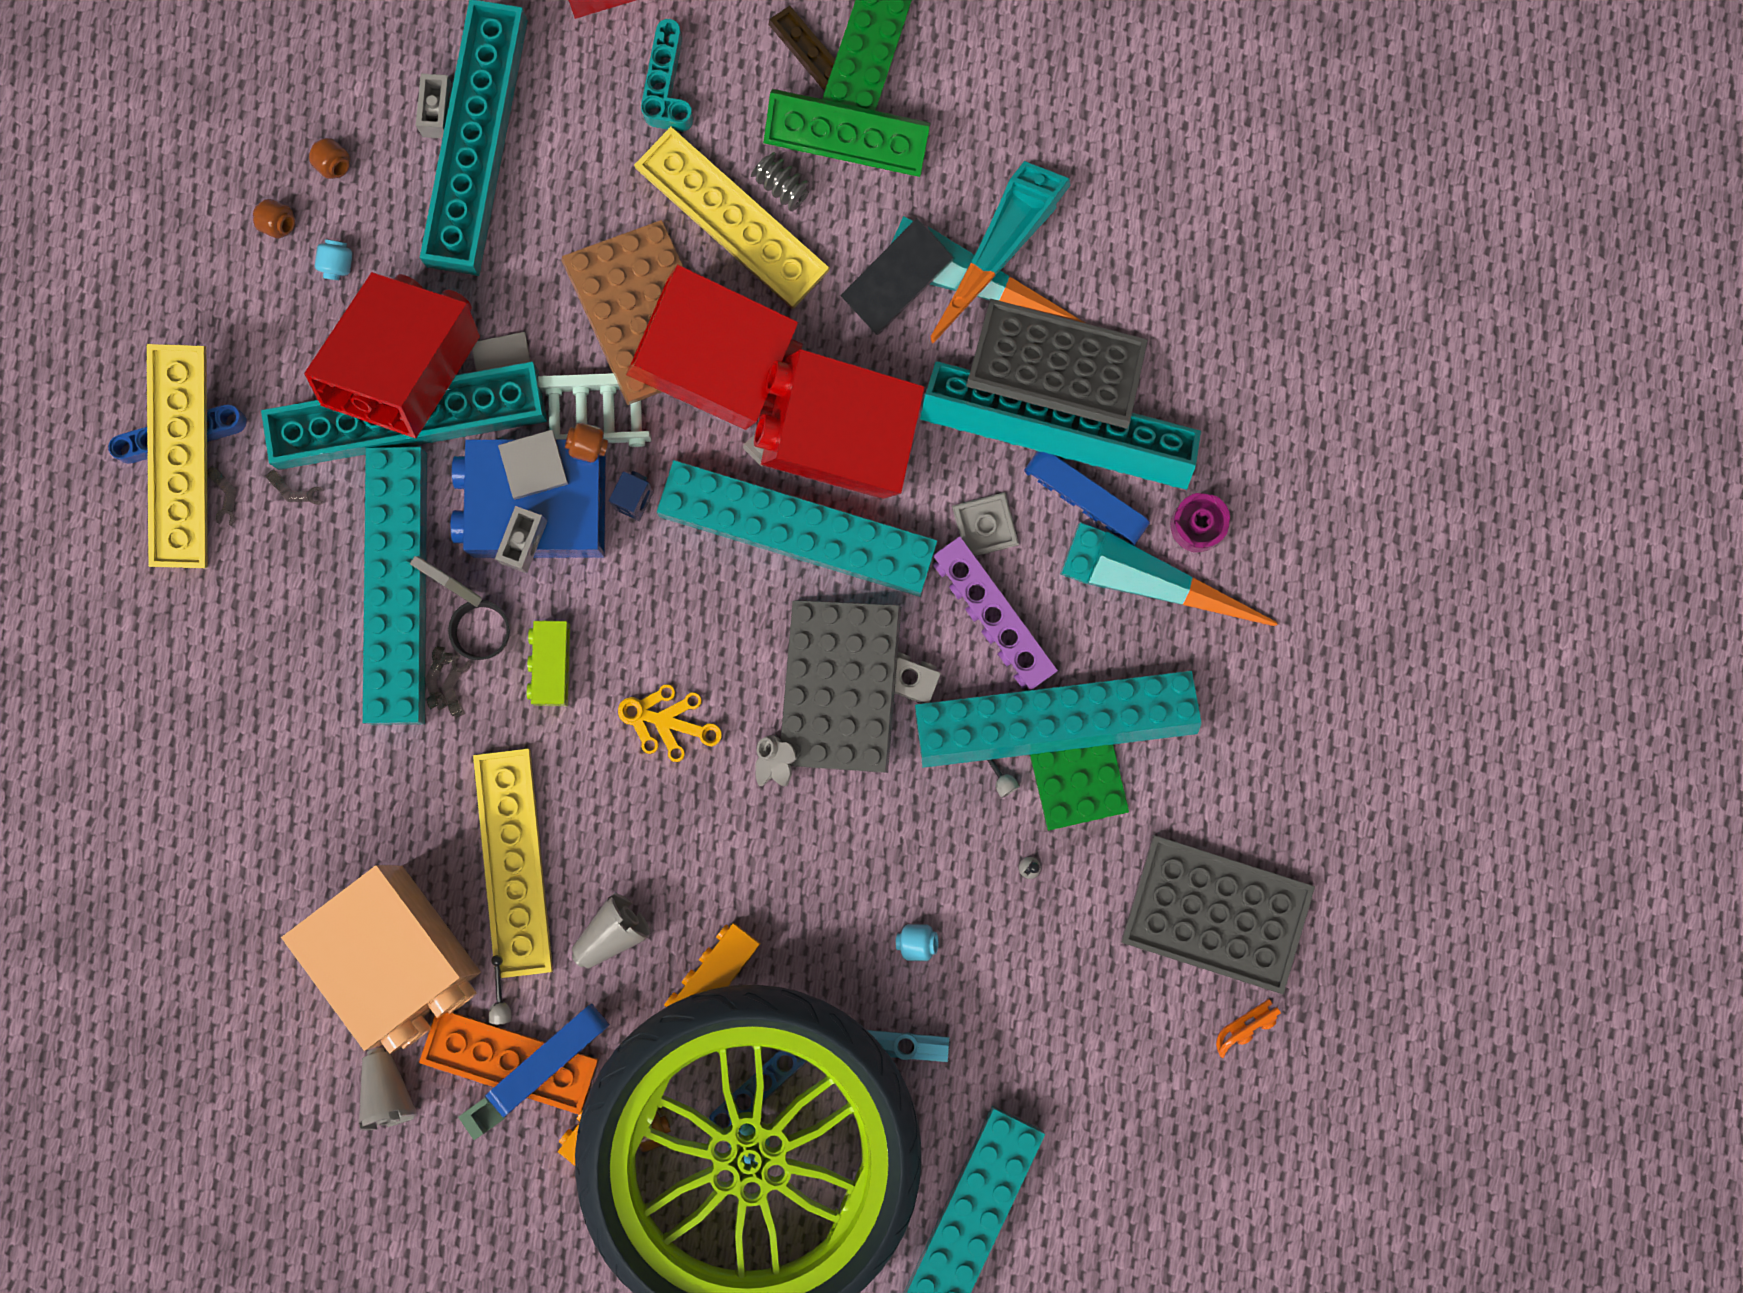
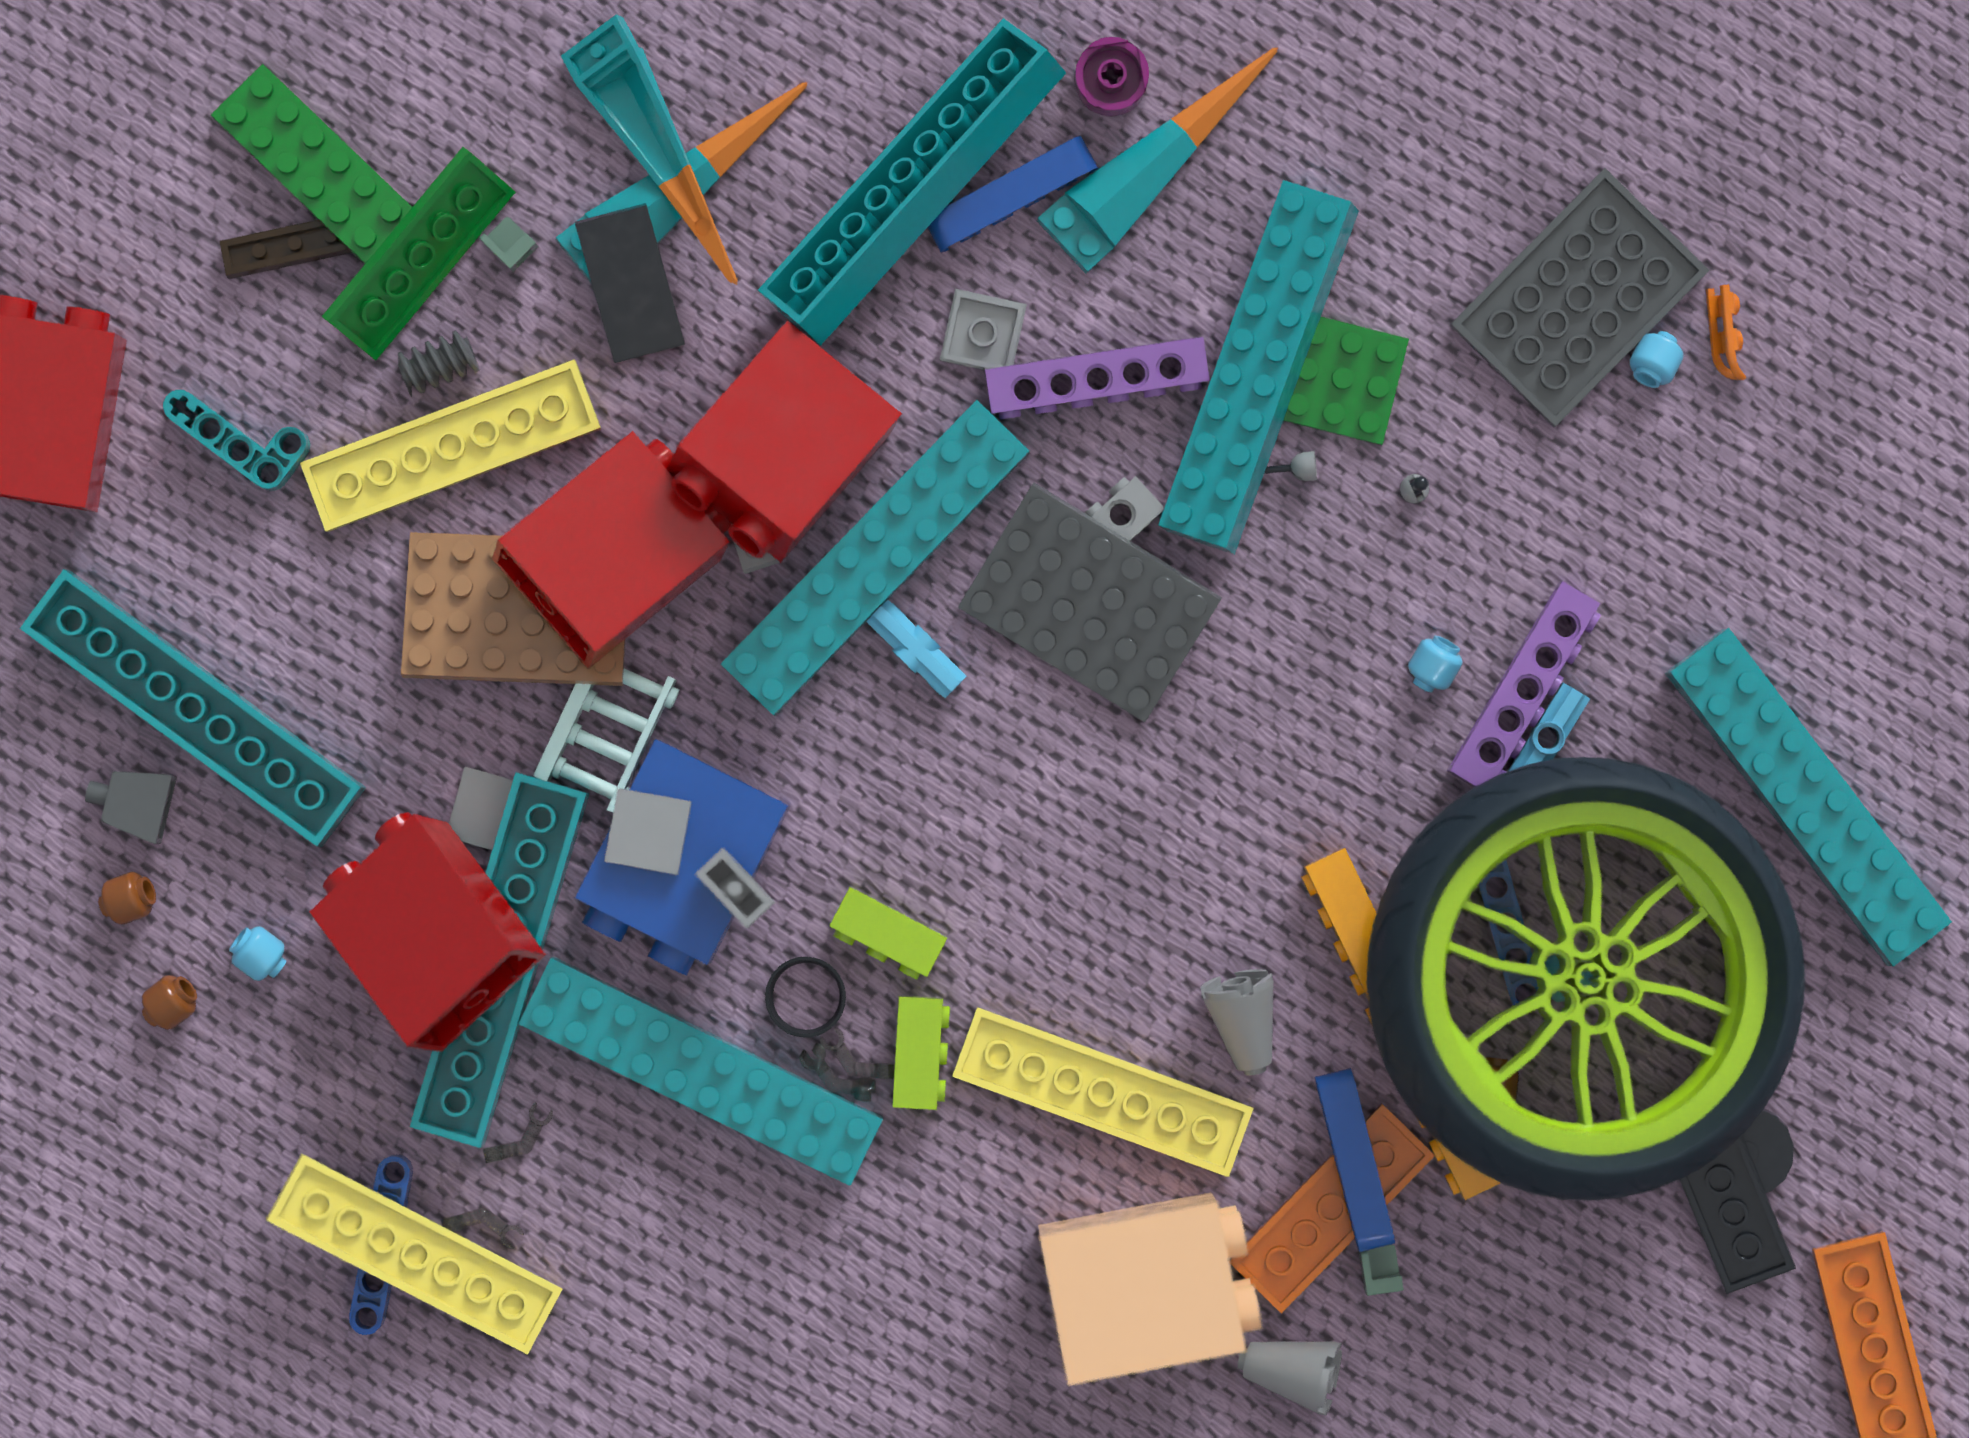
camera: 65 degrees left, 5 degrees up
(394, 133) = (135, 802): none -> dark grey torso
(433, 104) = (129, 737): light grey brick -> none
(445, 580) = (730, 1004): light grey tile -> none
(478, 725) = (920, 1052): none -> lime brick
(500, 1011) = (1268, 1191): hinge -> none
(586, 442) = (655, 755): dark orange head -> none
(631, 495) = (736, 734): dark blue brick -> none
(665, 721) = (1024, 830): yellow plant -> none
(750, 586) = (916, 648): none -> medium azure piece
(774, 761) = (1141, 724): light grey plate -> none
(883, 189) = (509, 243): none -> sand green panel
(1004, 1009) = (1563, 602): none -> medium lavender brick
(1058, 363) = (835, 145): dark grey plate -> none
(1203, 989) = (1656, 359): none -> medium azure head

